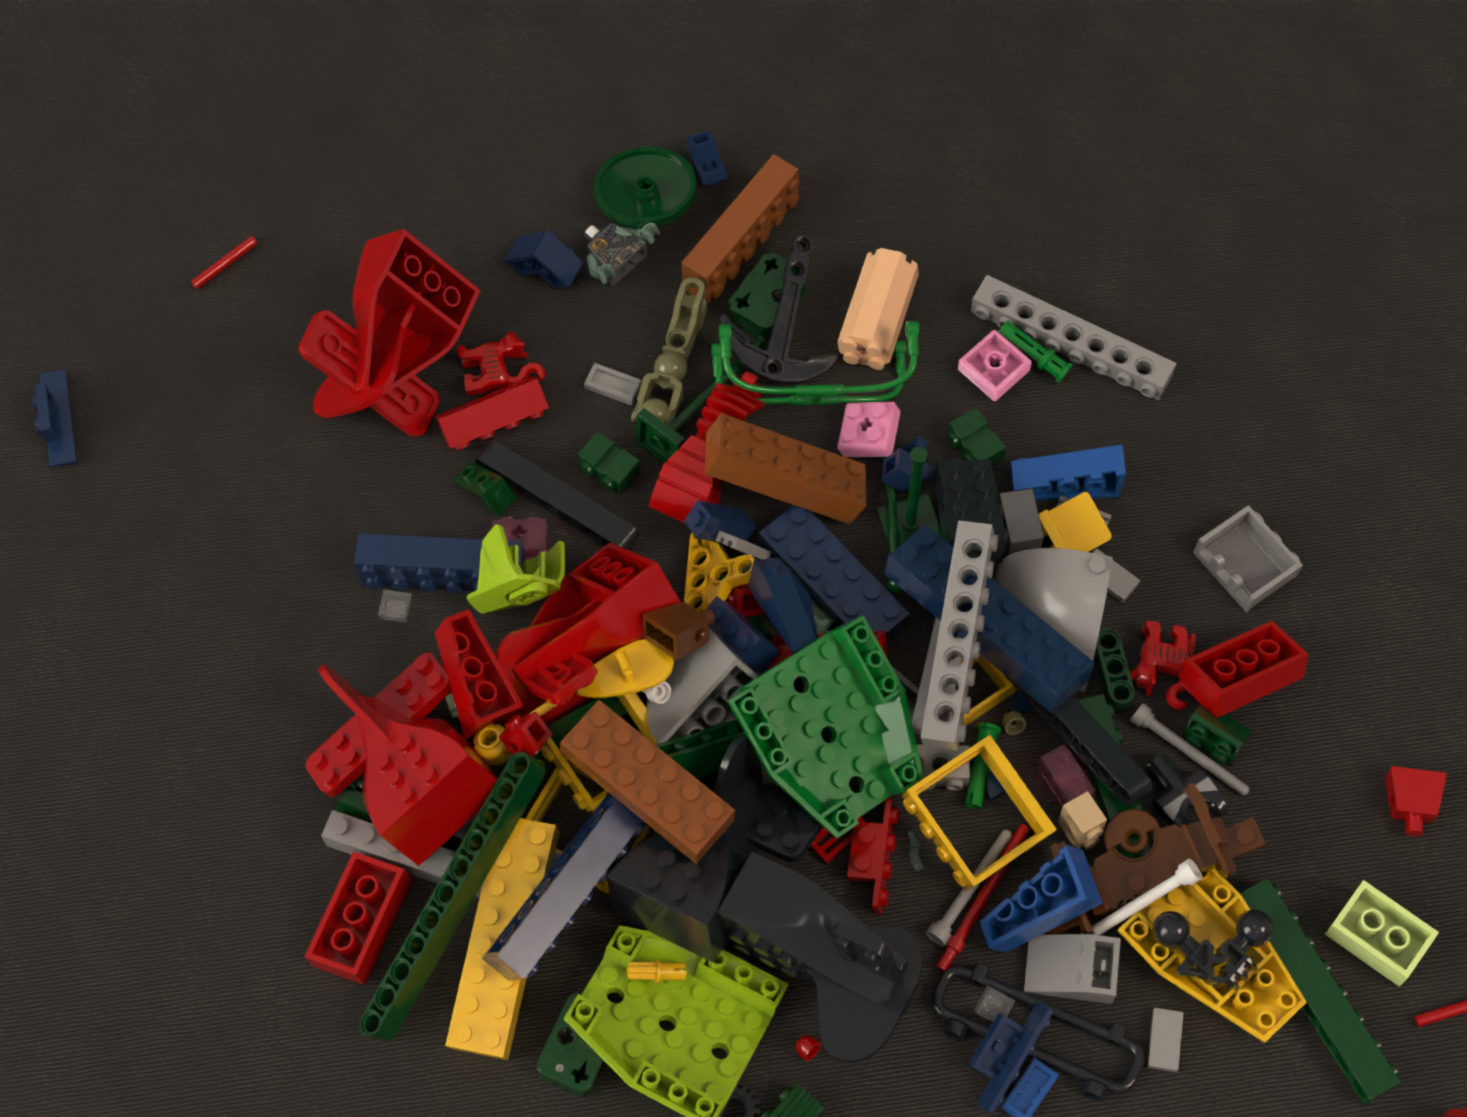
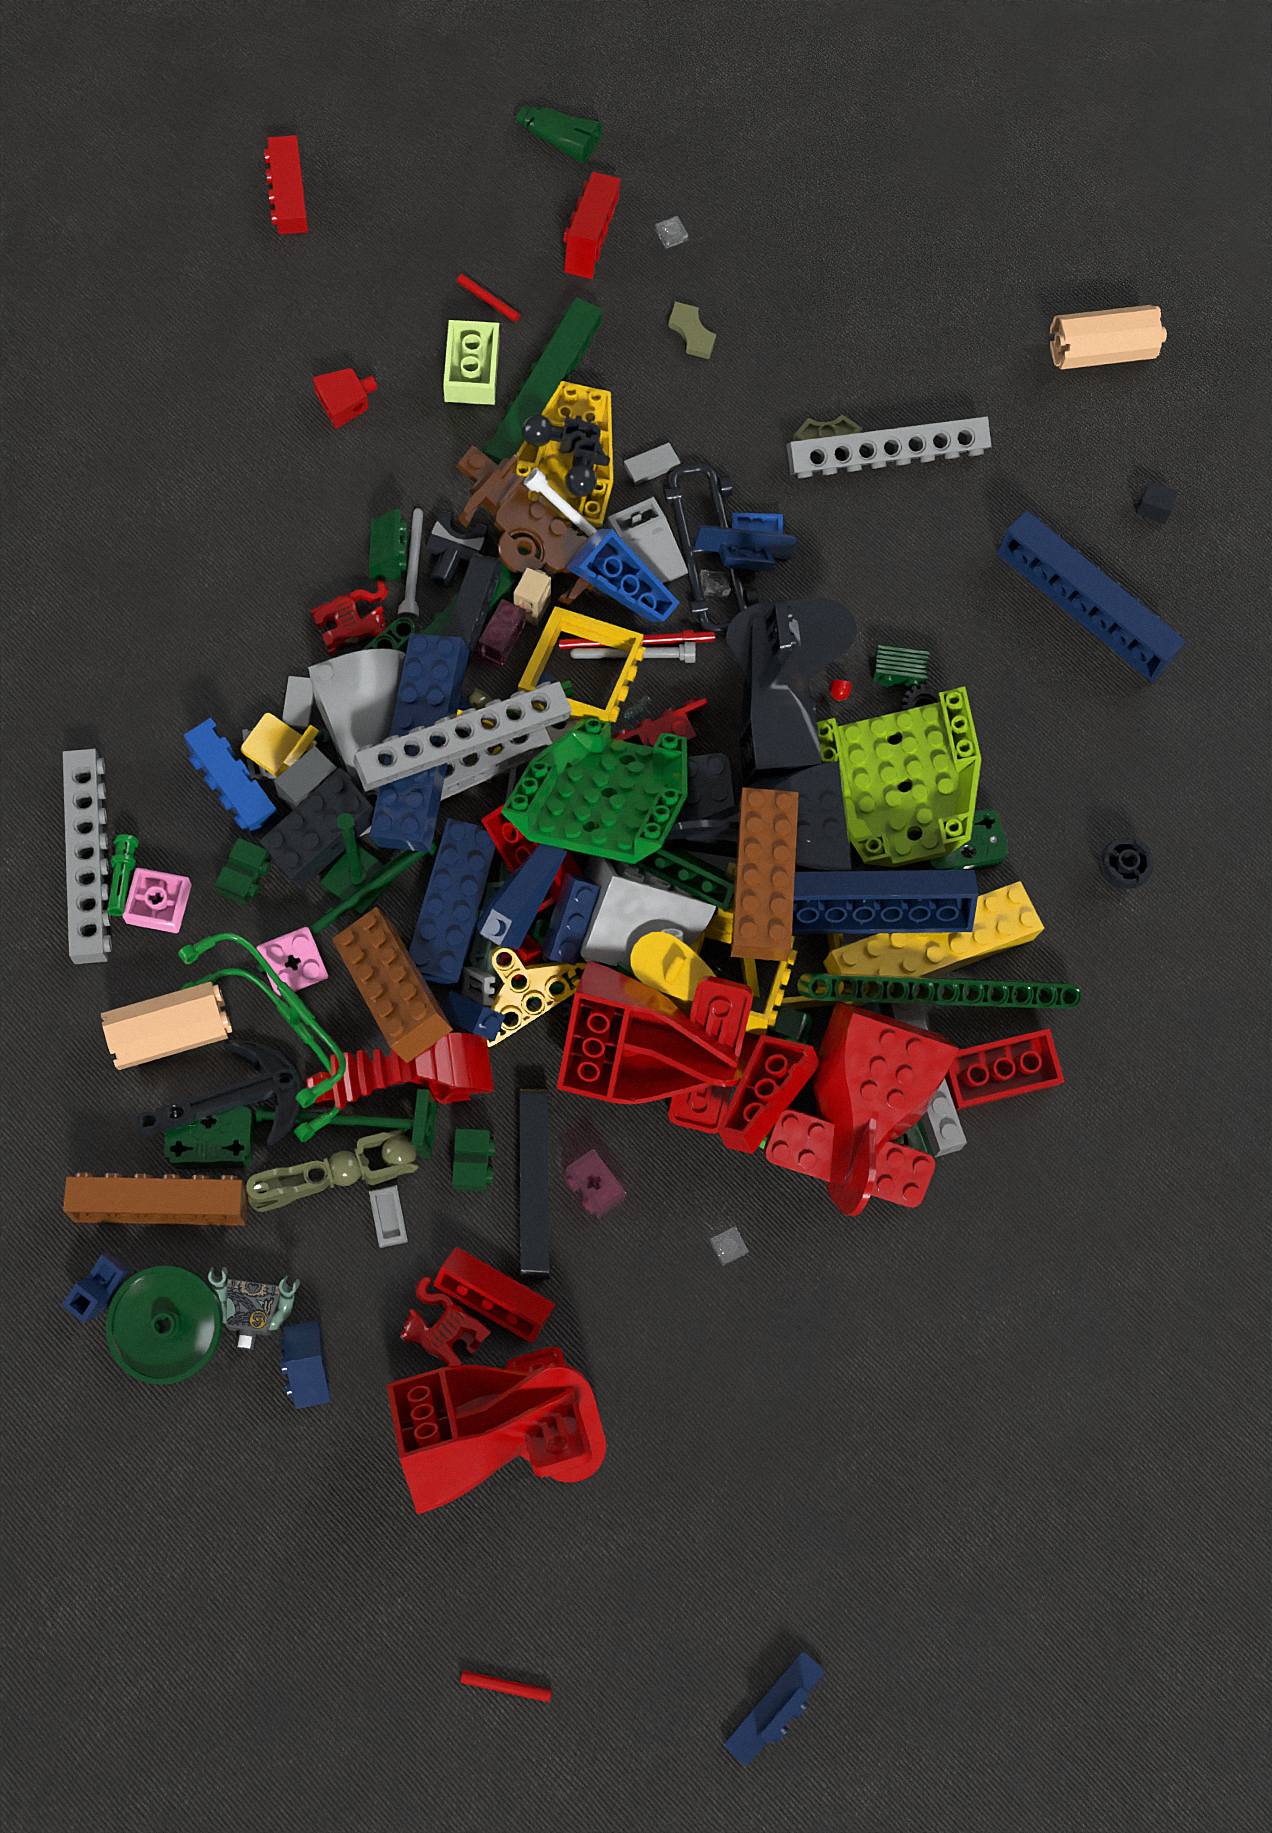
camera: 135 degrees left, 5 degrees up
(421, 562) = (670, 1226): dark blue brick -> none
(488, 486) = (567, 1253): dark green bracket -> none
(489, 745) = (809, 1031): yellow head -> none
(502, 581) = (643, 1124): lime piece -> none
(525, 734) = (790, 1005): red brick -> none
(656, 971) = (876, 813): yellow axle -> none
(677, 628) = (613, 949): reddish brown torso -> none
(898, 466) = (307, 903): dark blue brick -> none
(1244, 669) = (325, 548): red brick -> none
(1247, 558) = (214, 606): window -> none

